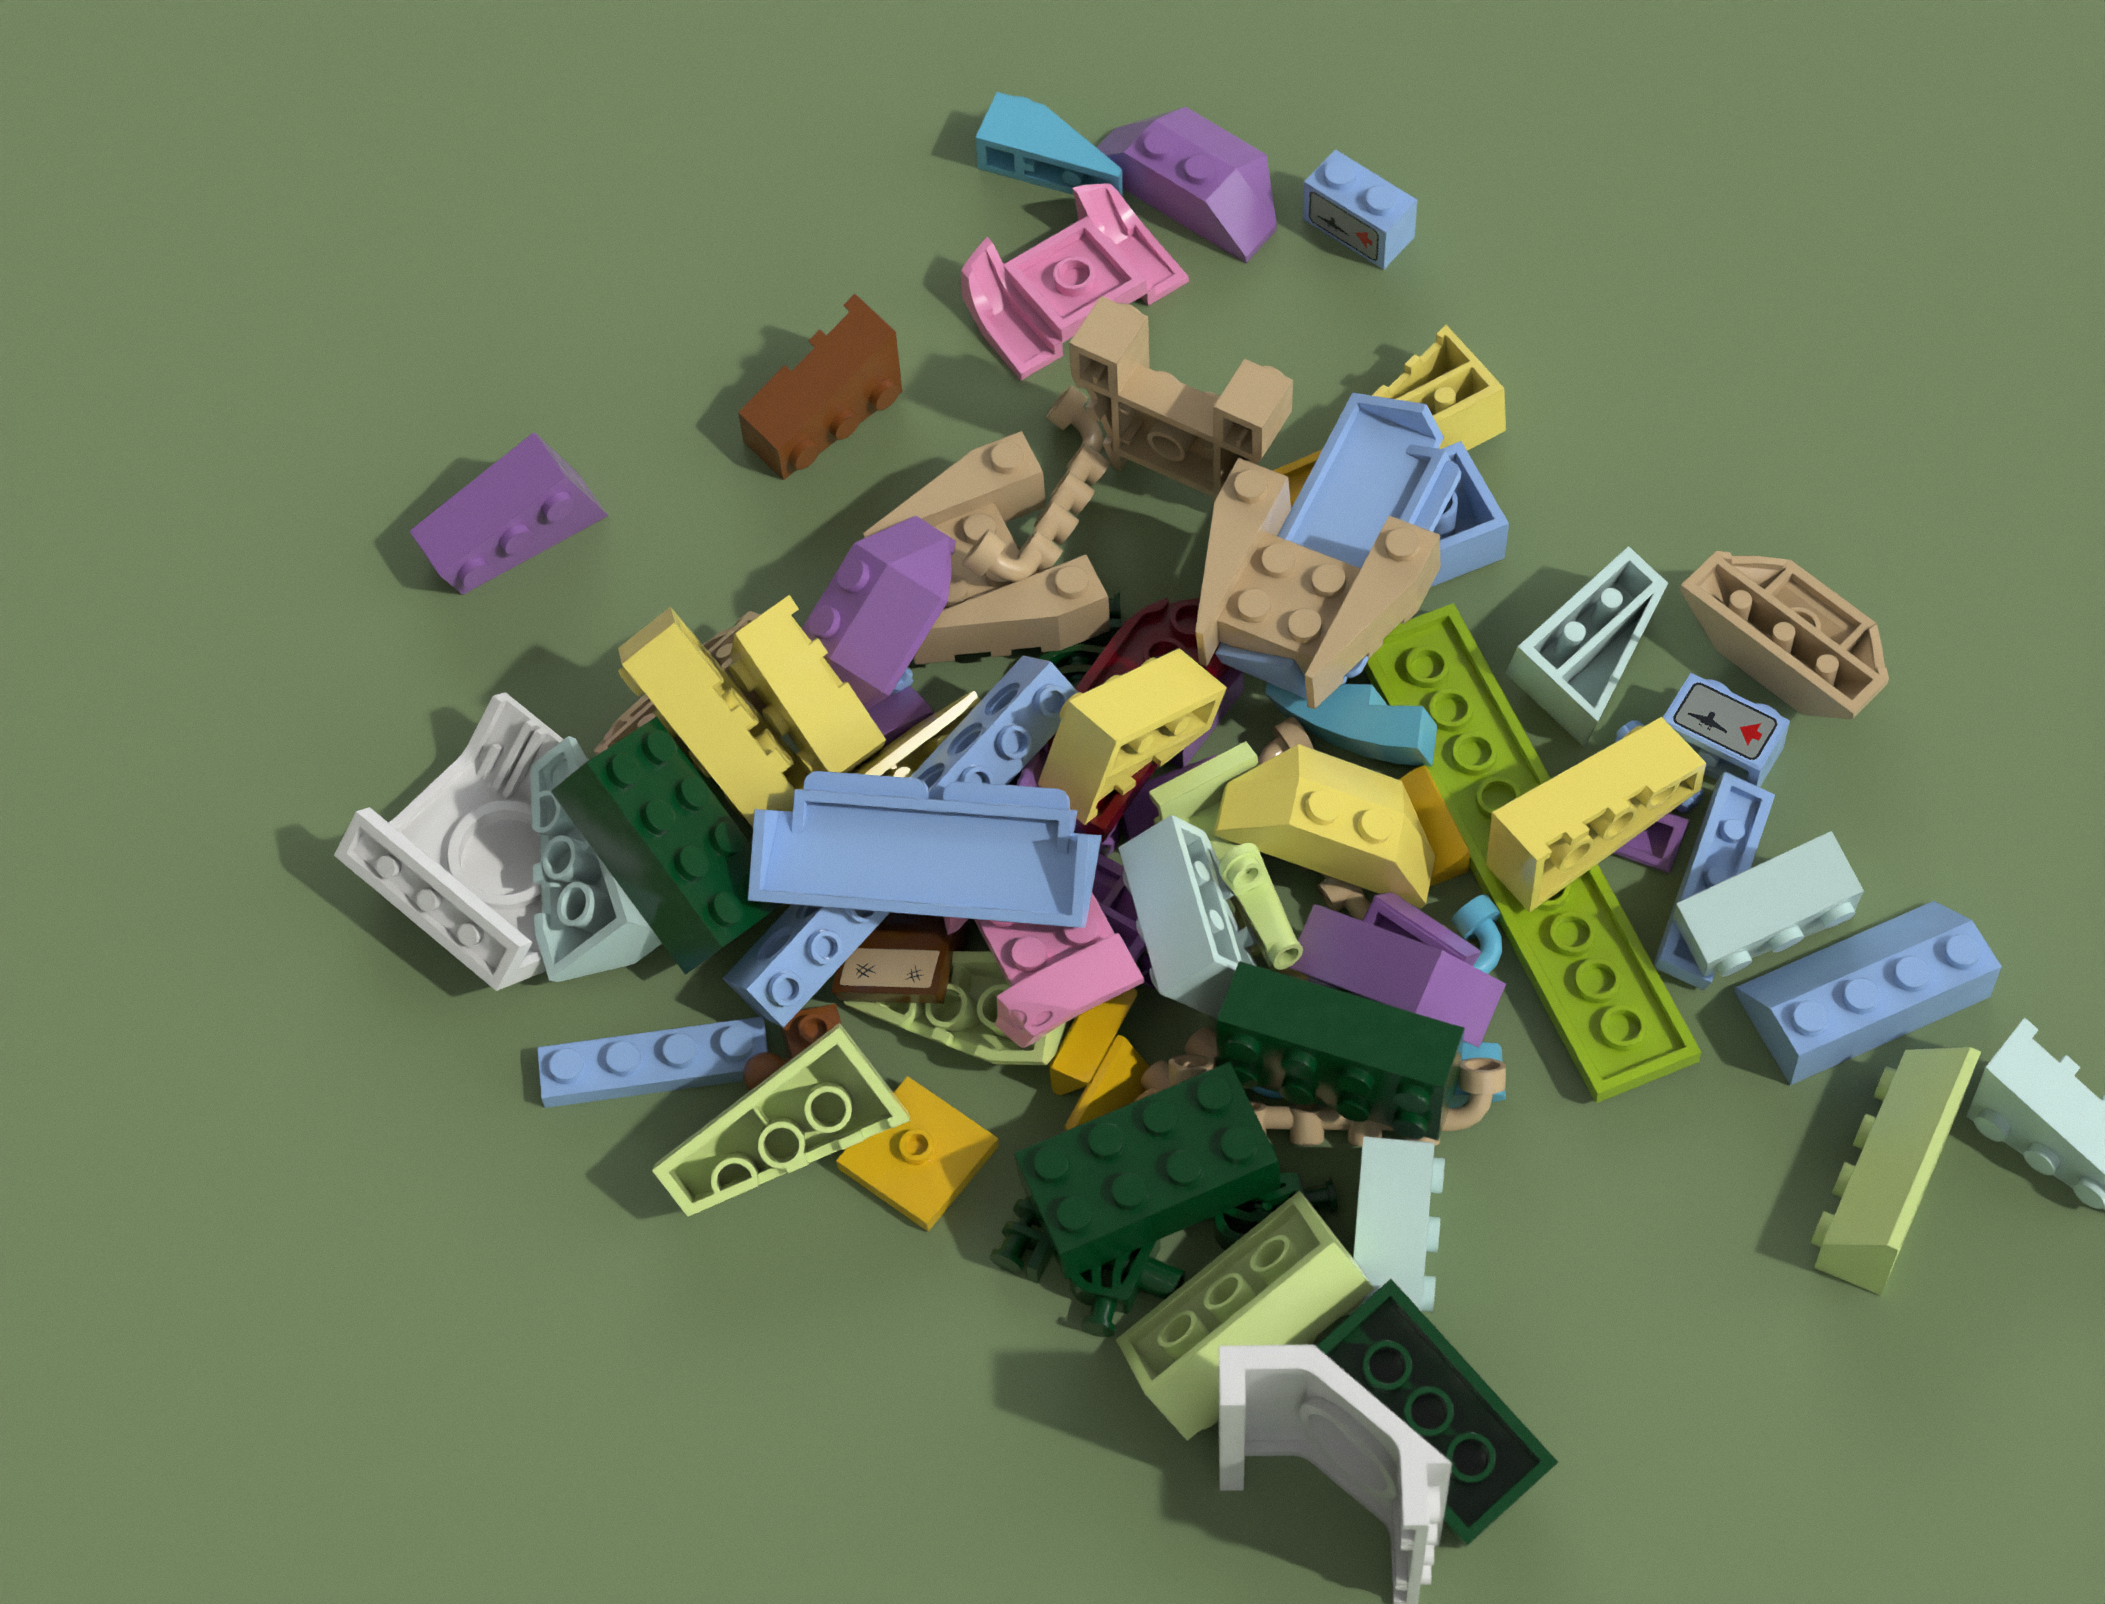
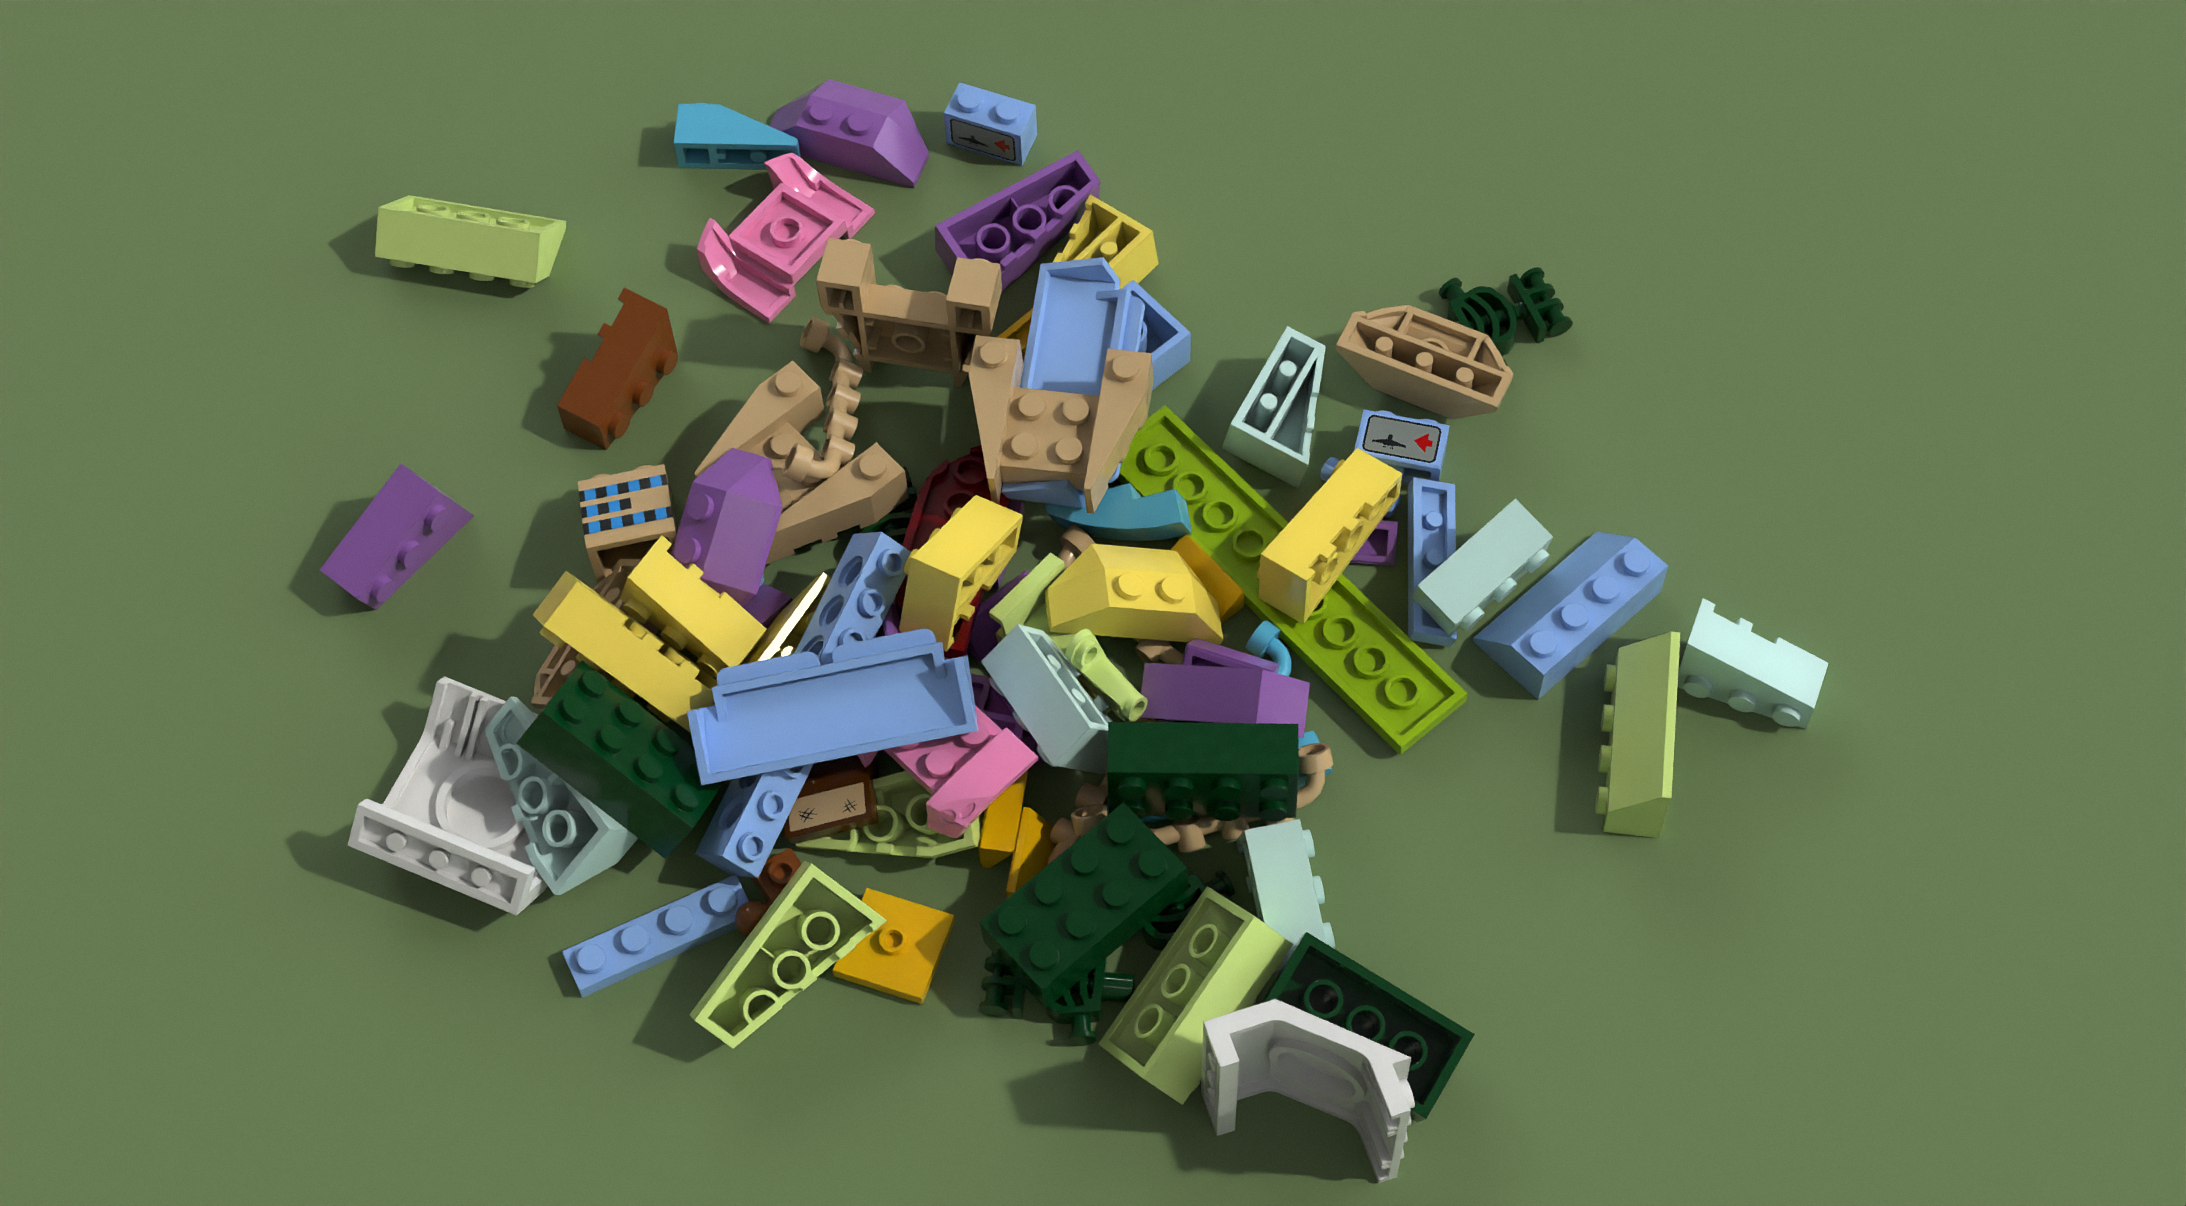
camera: 20 degrees left, 0 degrees up
(705, 191) = (468, 240): none -> yellowish green slope
(771, 557) = (625, 515): none -> tan slope
(1351, 336) = (1021, 220): none -> medium lavender wedge
(1953, 602) = (1487, 309): none -> dark green piece

